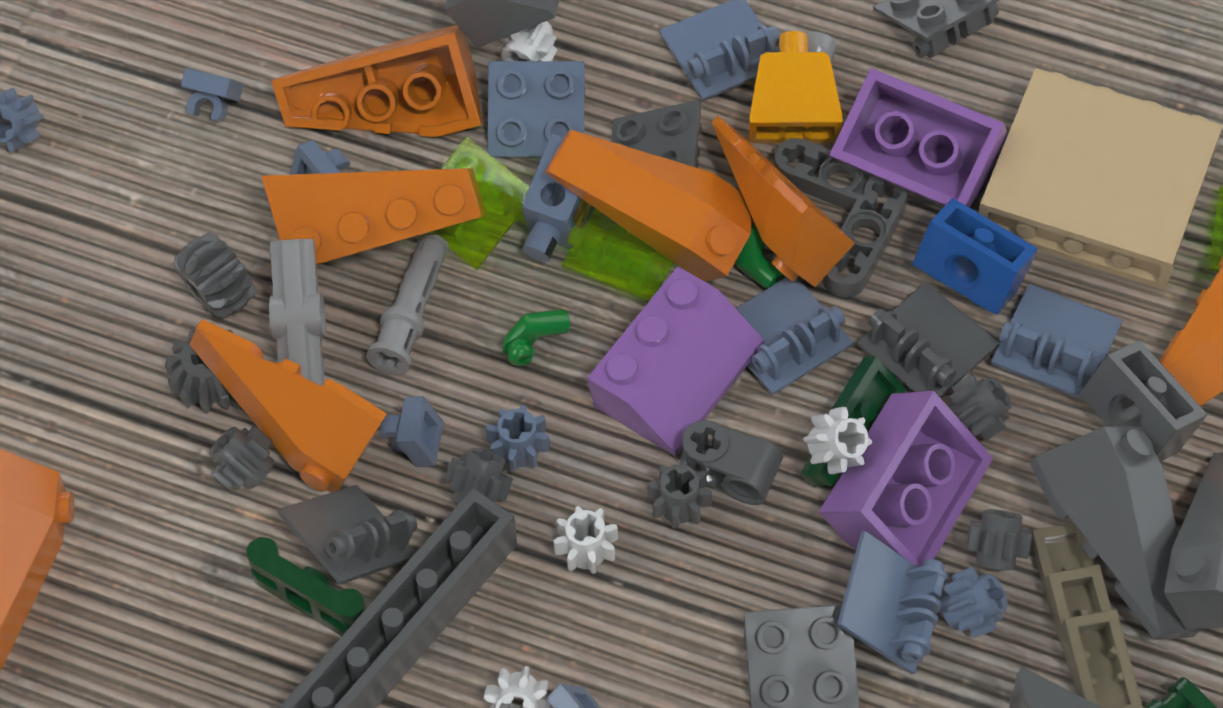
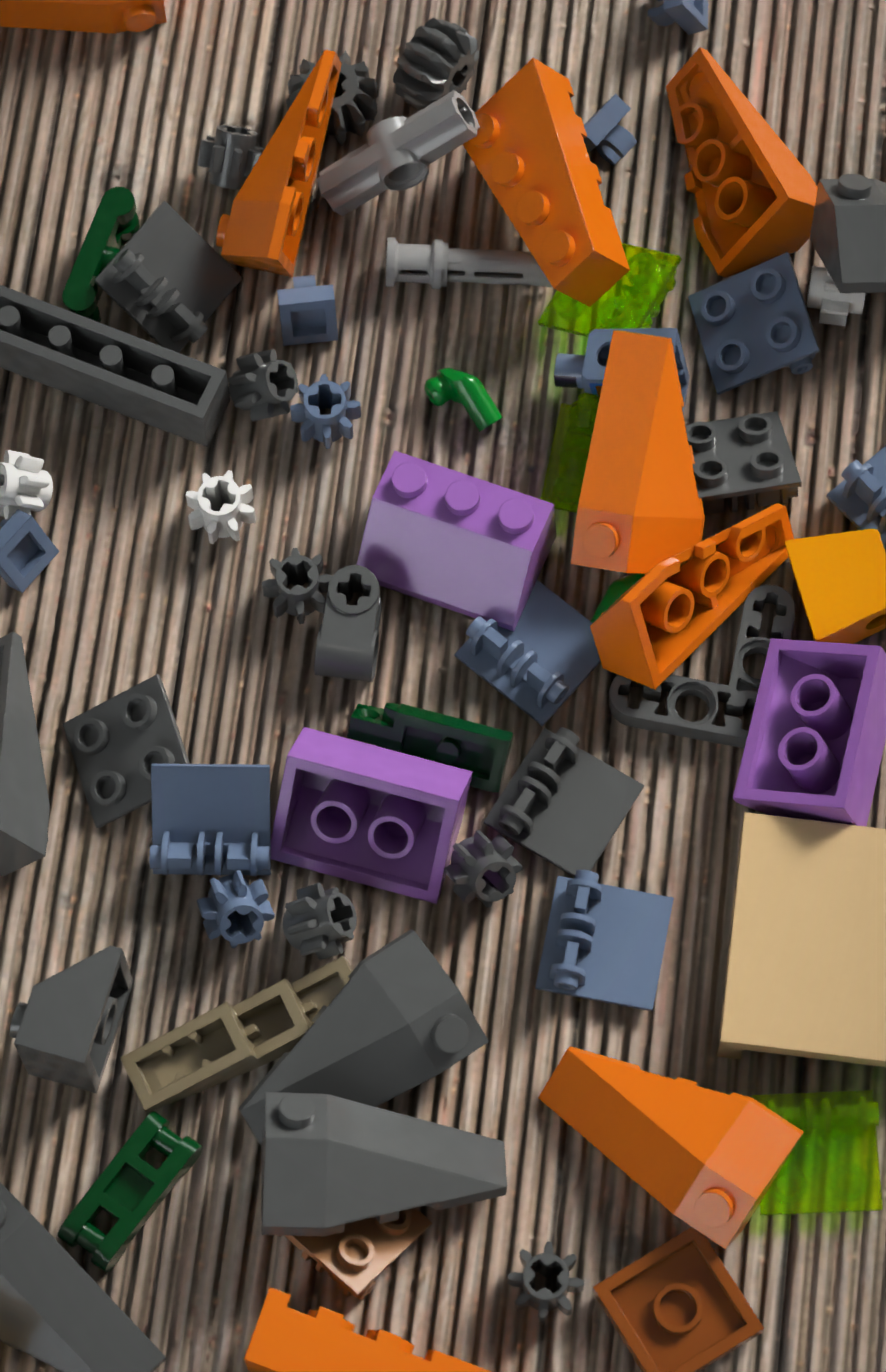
camera: 75 degrees right, 10 degrees up
(837, 440) = (374, 732): white gear -> none
(974, 256) = (676, 822): blue brick -> none
(1140, 391) = (527, 1041): dark grey brick -> none

